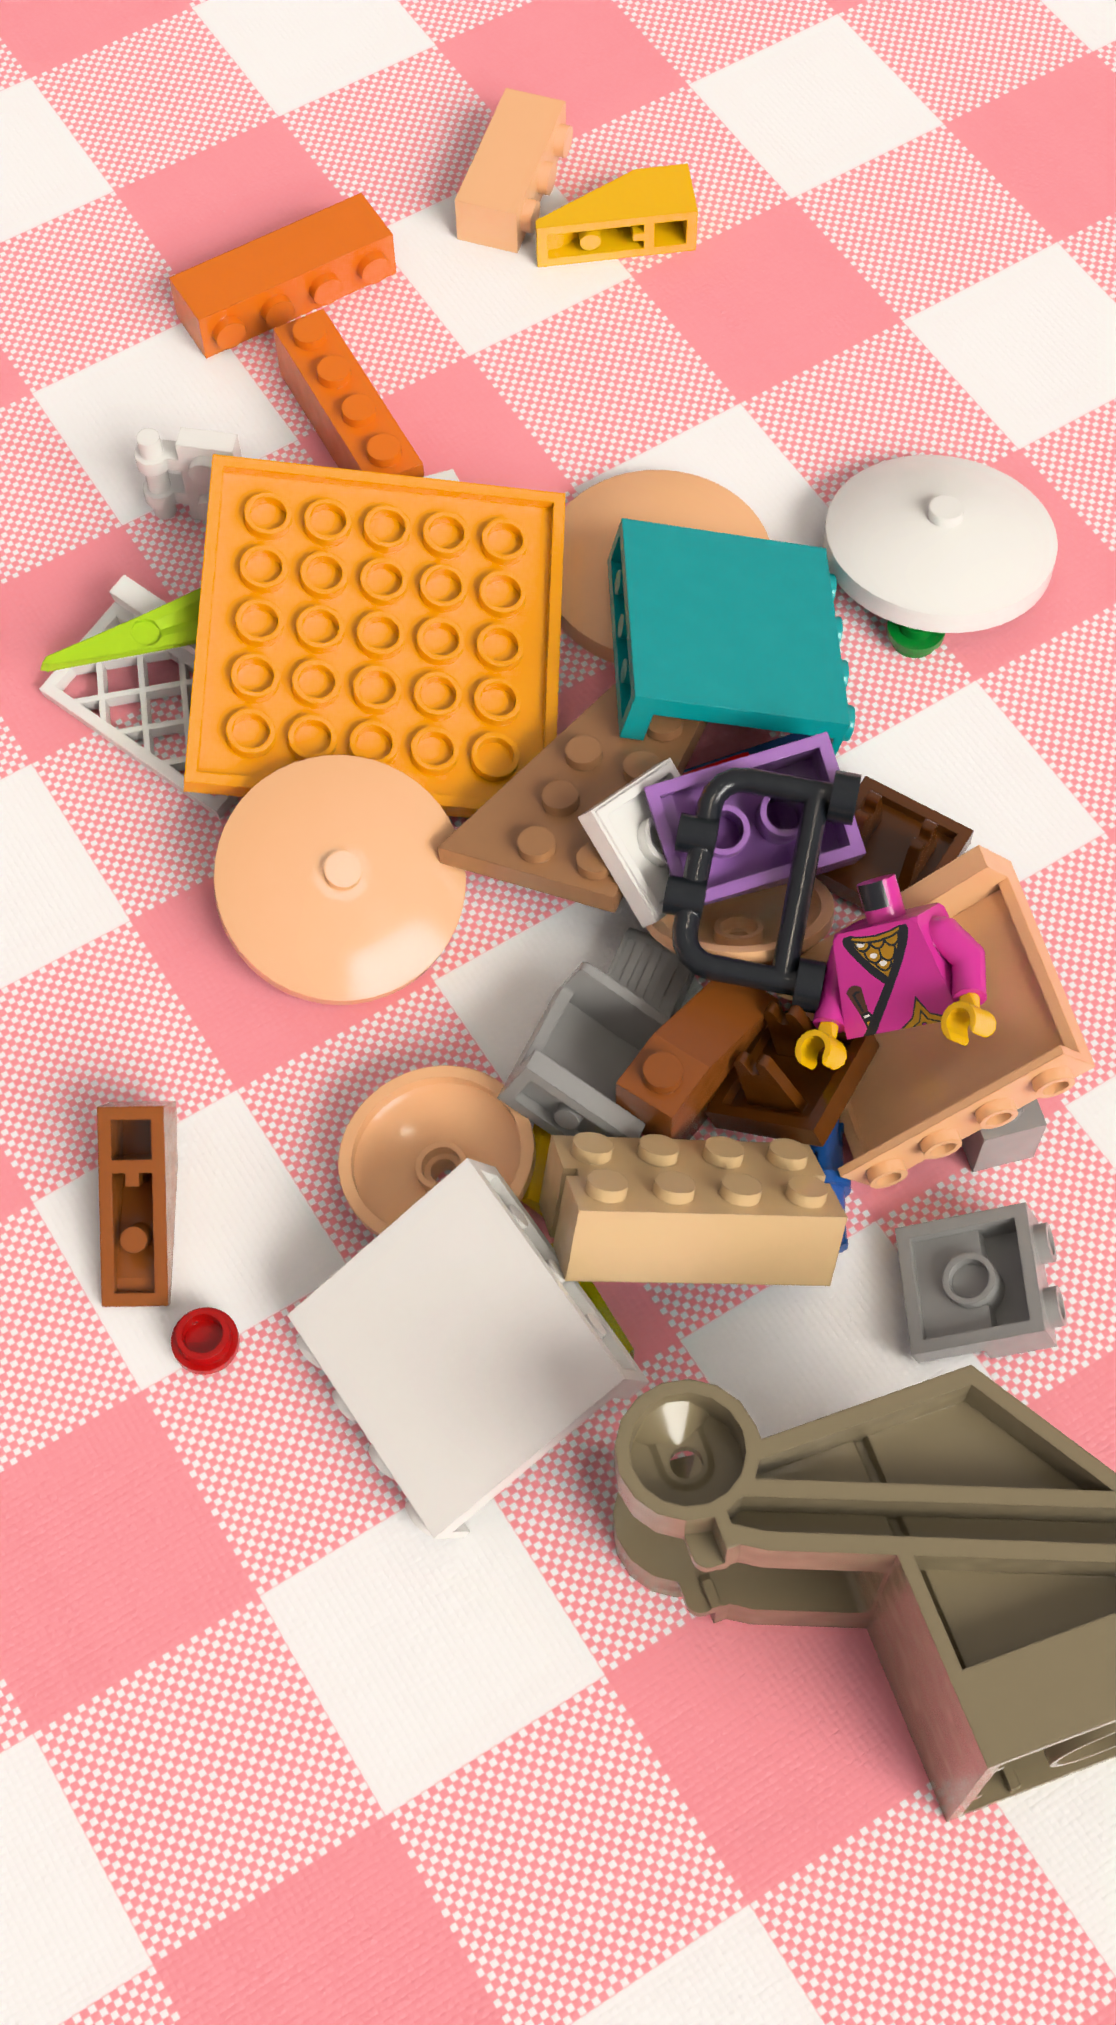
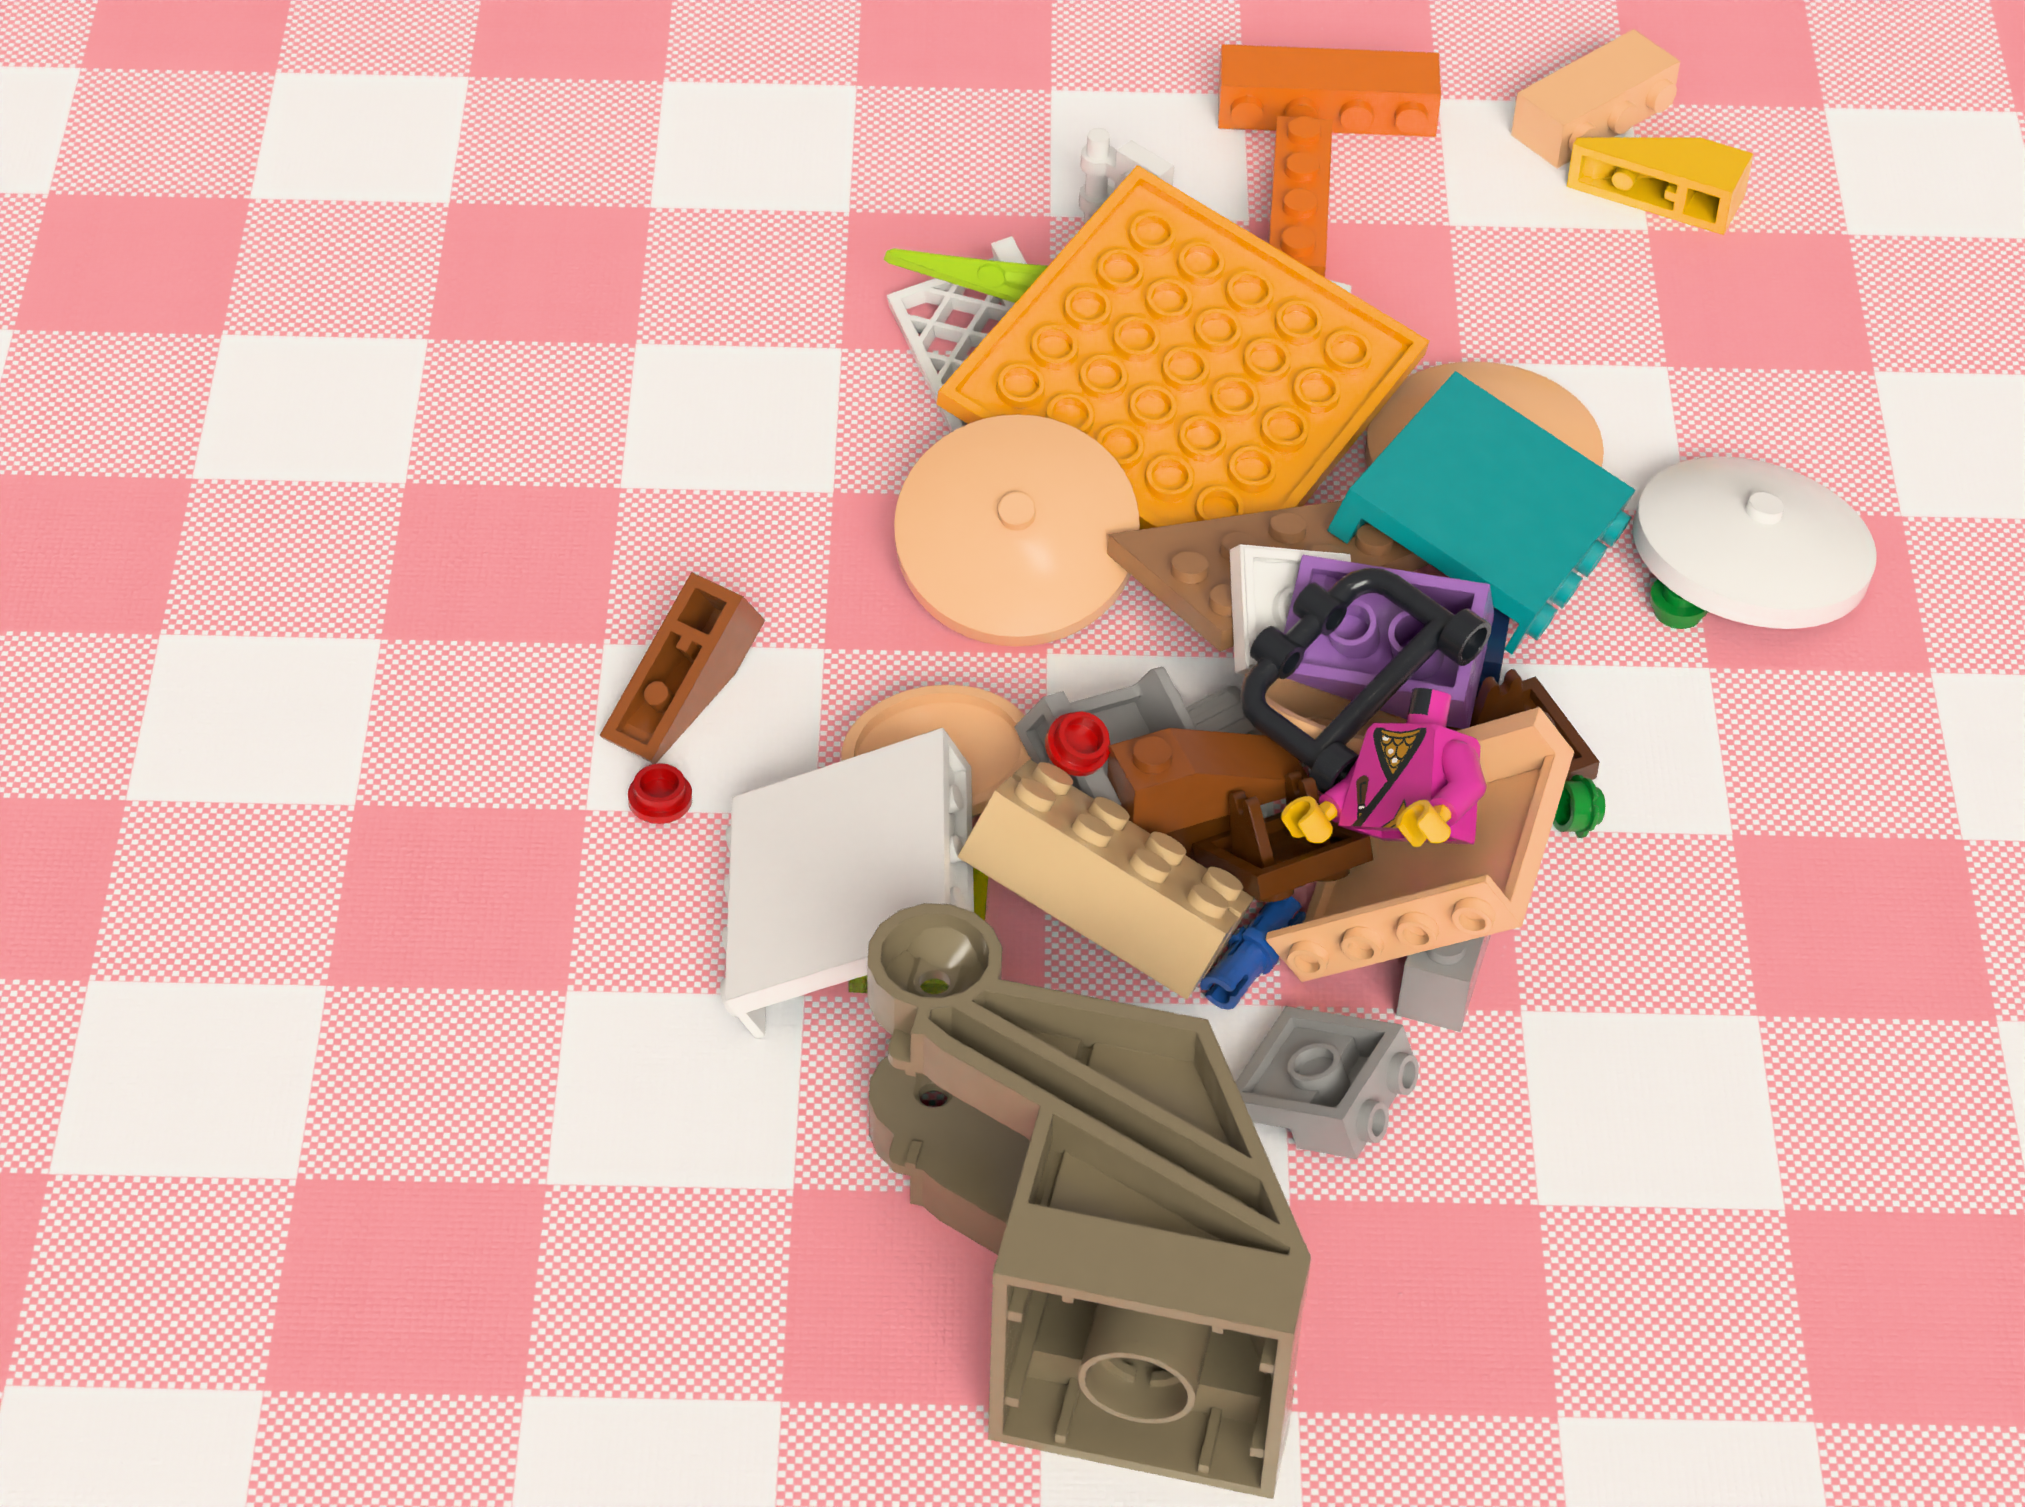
camera: 30 degrees right, 15 degrees down
(588, 1097) = (1078, 743): none -> red plate

